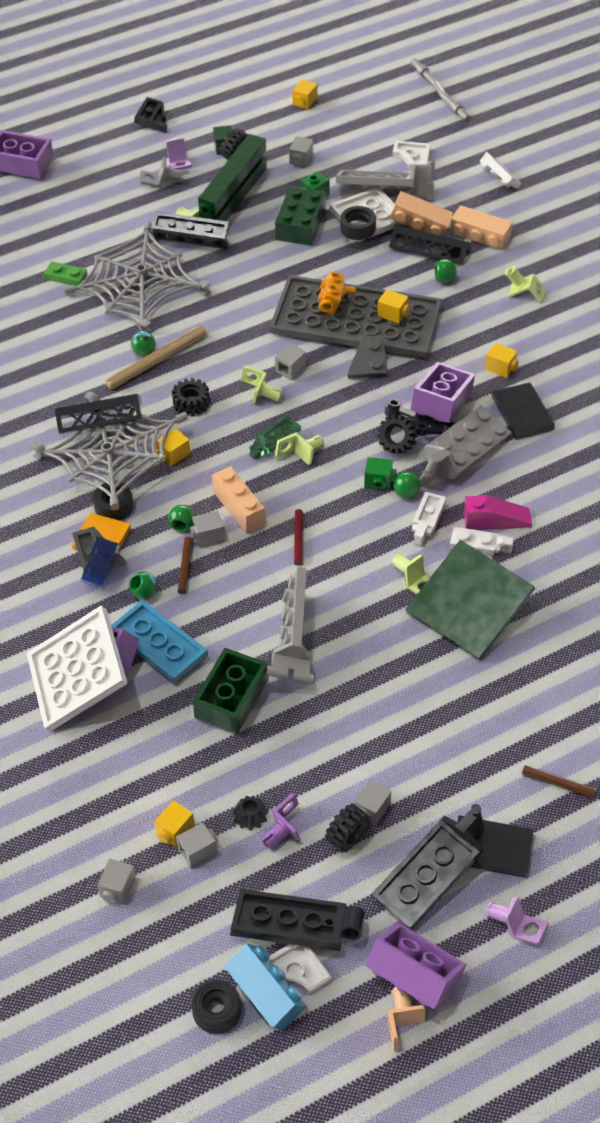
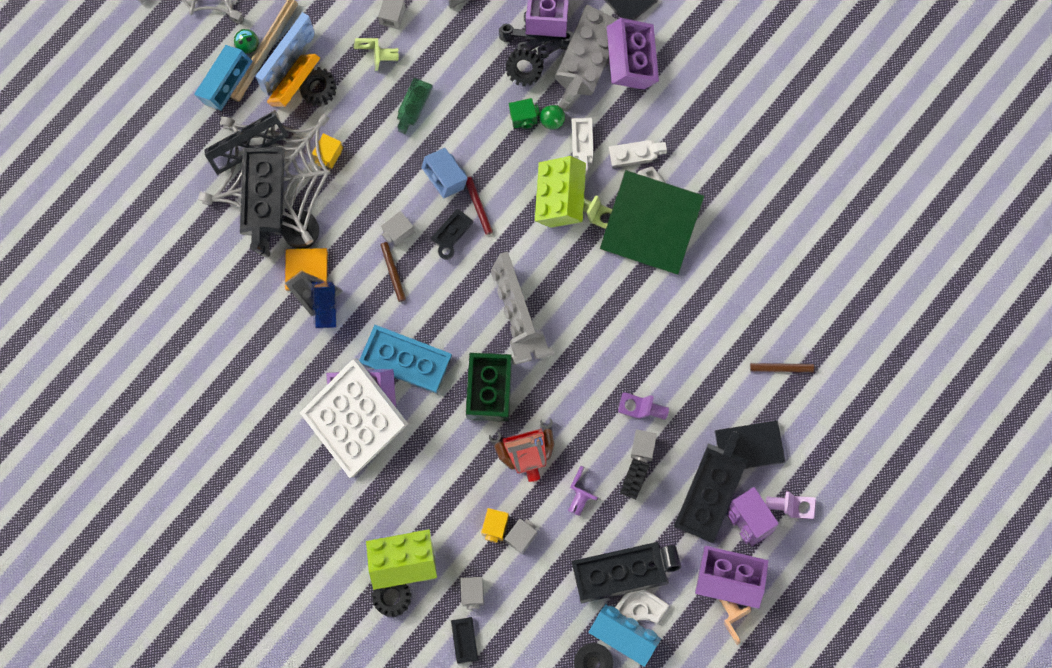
camera: 15 degrees left, 25 degrees up
(22, 844) = (392, 610): none -> black tyre
(55, 816) = (401, 559): none -> lime brick
(83, 931) = (464, 640): none -> black tile
(88, 457) = (262, 196): none -> black hinge
(107, 362) = (223, 77): none -> dark azure brick
(143, 585) = (368, 309): green piece -> none
(168, 381) = (293, 80): none -> light orange tile
(173, 359) = (286, 52): none -> light blue plate
(181, 518) = (369, 226): green piece -> none
(238, 500) = (411, 188): light nougat brick -> none
(242, 762) = (526, 451): none -> torso
(250, 812) = (549, 489): black piece -> none
(260, 548) = (451, 232): none -> black hinge
(277, 495) = (444, 172): none -> medium blue brick
(299, 446) = (442, 108): yellowish green bracket -> none
(385, 543) = (560, 191): none -> lime brick
(388, 766) = (643, 408): none -> medium lavender bracket
(464, 906) = (752, 517): none -> medium lavender brick
(493, 513) = (640, 119): dark pink slope -> none
(509, 453) = (632, 53): none -> medium lavender brick

